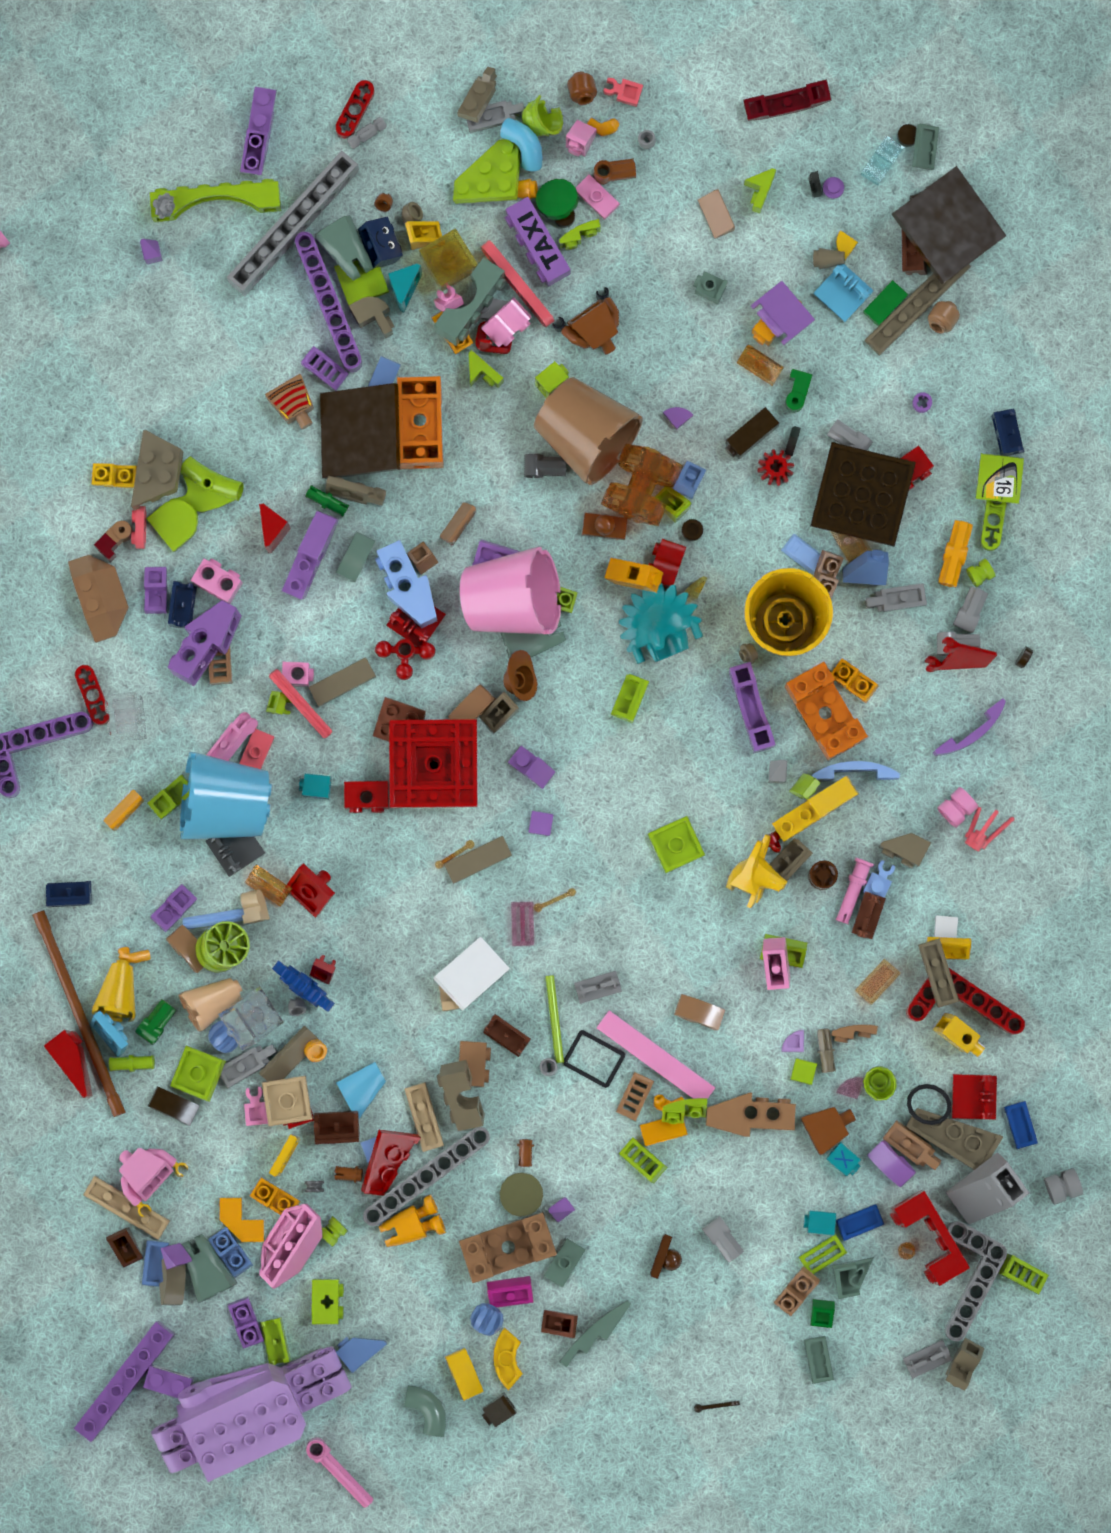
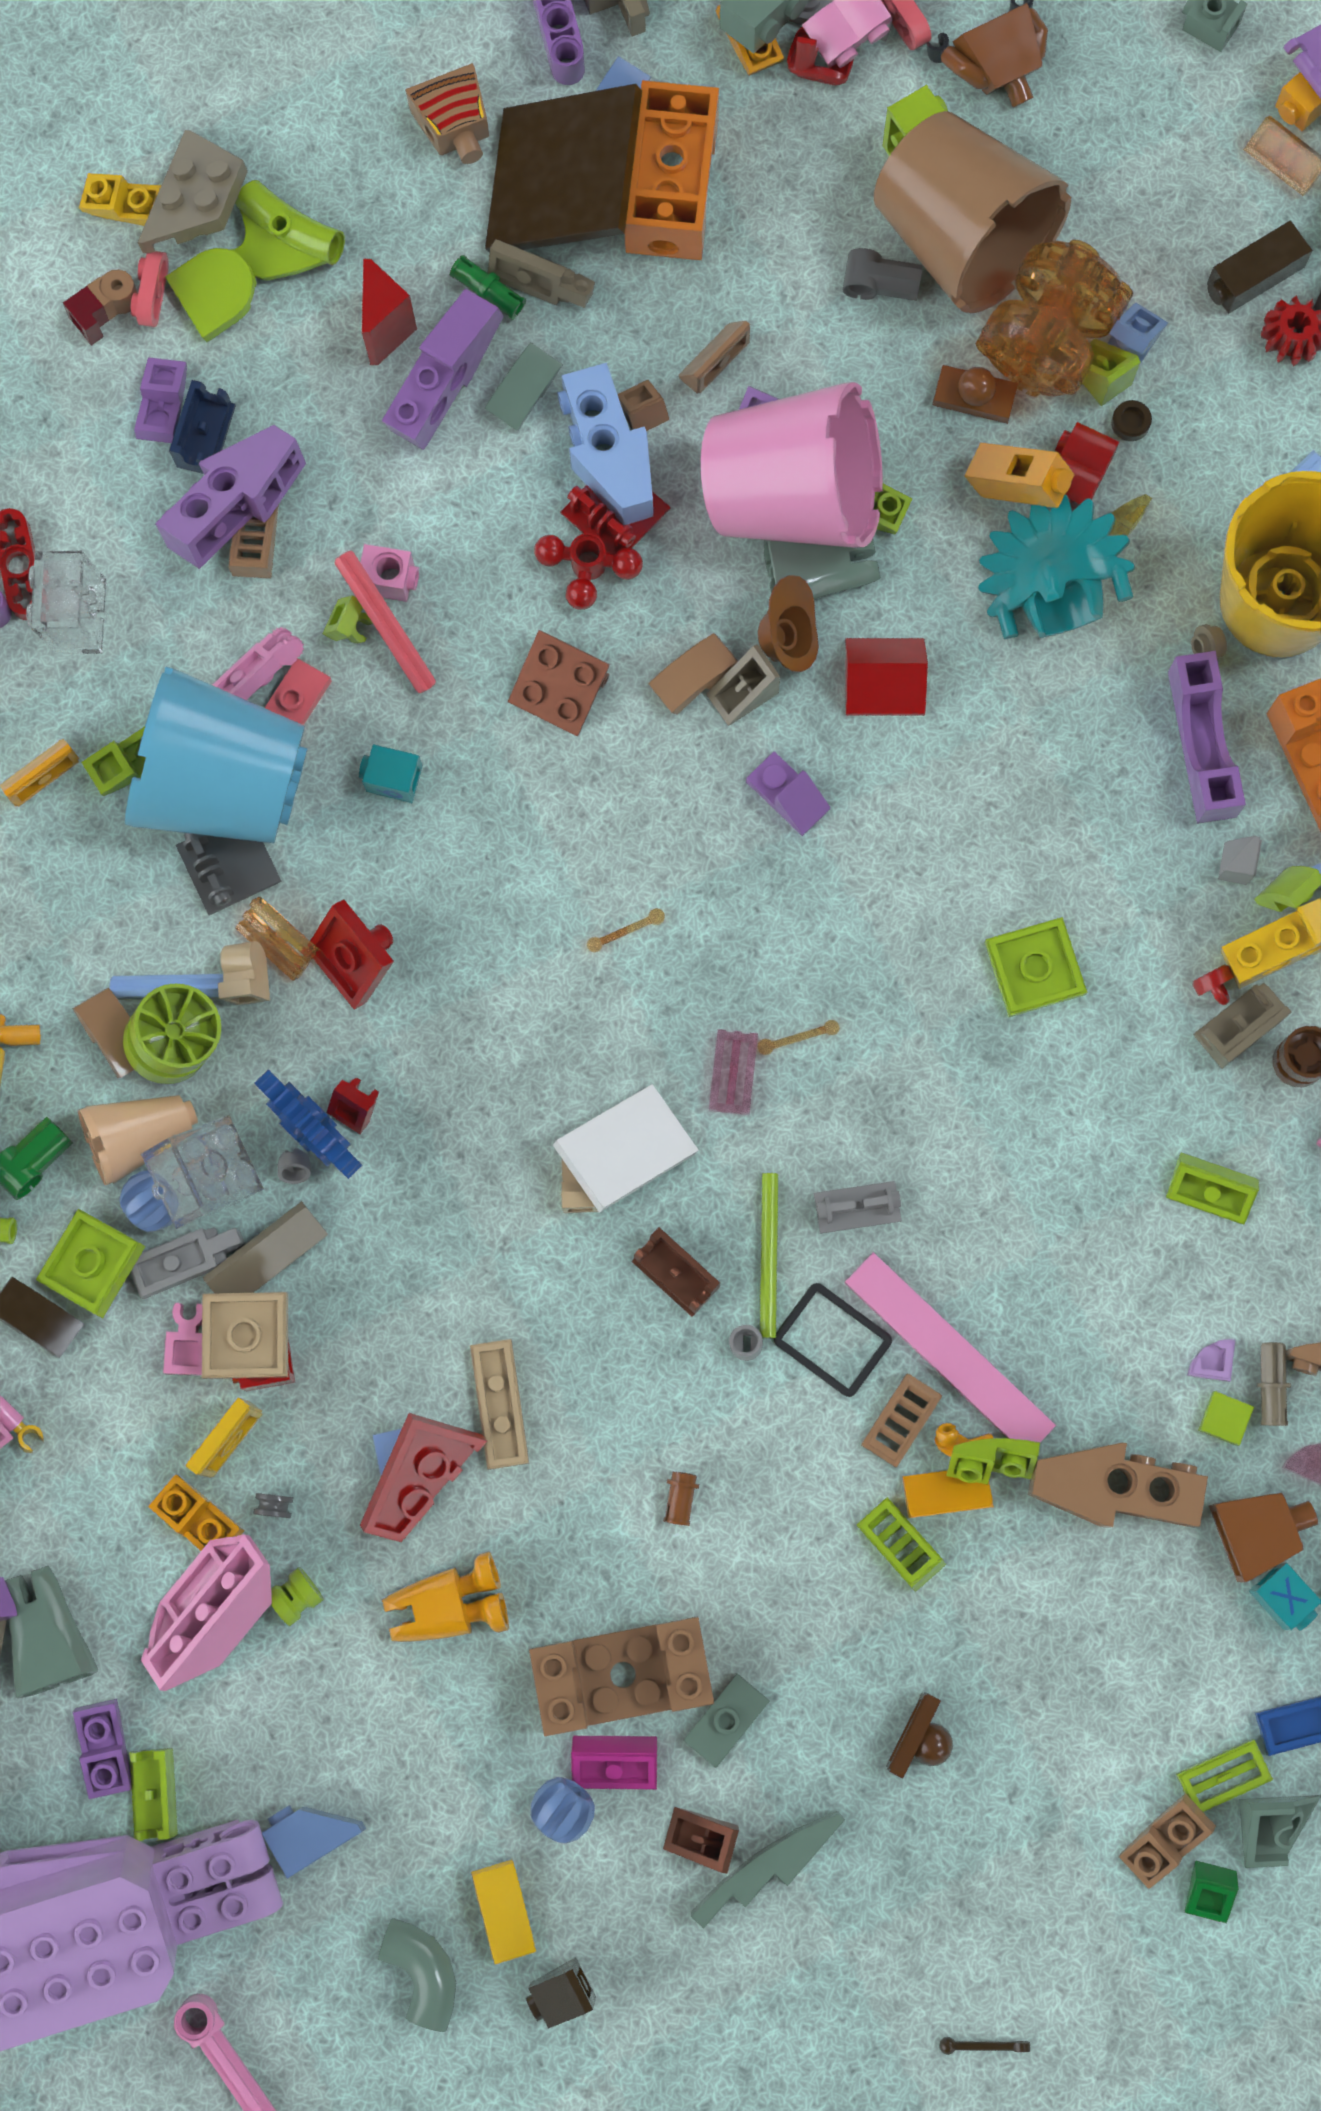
camera: 10 degrees right, 5 degrees down
(99, 595) = (59, 398): medium nougat wedge -> none
(173, 908) = (99, 957): medium lavender slope -> none
(214, 585) = (265, 401): bright pink brick -> none
(230, 1252) = (96, 1608): medium blue slope -> none
(232, 1218) = (110, 1542): light orange tile -> none
(315, 1050) = (315, 1251): light orange tile -> none
(320, 374) = (499, 50): medium lavender slope -> none
(320, 1289) = (245, 1750): lime brick -> none
(336, 1127) = (331, 1400): copper hinge -> none
(342, 682) = (467, 600): dark tan tile -> none
(350, 1174) = (342, 1491): dark orange pin -> none
(354, 790) = (462, 787): red brick -> none
(362, 1087) = (390, 1333): medium azure slope -> none
(416, 1180) = (466, 1517): light grey beam -> none
(417, 745) = (600, 716): red piece -> none
(465, 1111) = (575, 1403): dark tan arch -> none
(476, 1055) = (605, 1316): medium nougat brick -> none
(478, 859) = (667, 945): dark tan tile -> none
(479, 367) = (793, 100): lime slope -> none
(505, 1359) = (587, 1891): yellow tile -> none
(521, 1194) = (661, 1577): olive tile -> none
(541, 823) = (791, 895): medium lavender tile -> none
(561, 1209) = (734, 1616): medium lavender slope -> none
(575, 694) = (885, 676): none -> red slope
(630, 698) = (984, 694): lime hinge -> none
(677, 416) = (1128, 225): medium lavender tile -> none
(699, 1012) = (1043, 1278): medium nougat slope -> none
(720, 1236) = (1032, 1710): light grey piece -> none
(756, 874) = (1181, 1035): yellow piece -> none
(776, 963) = (1201, 1206): bright pink brick -> none
(818, 1359) = (1195, 1984): sand green plate -> none
(820, 1222) = (1228, 1713): teal brick -> none

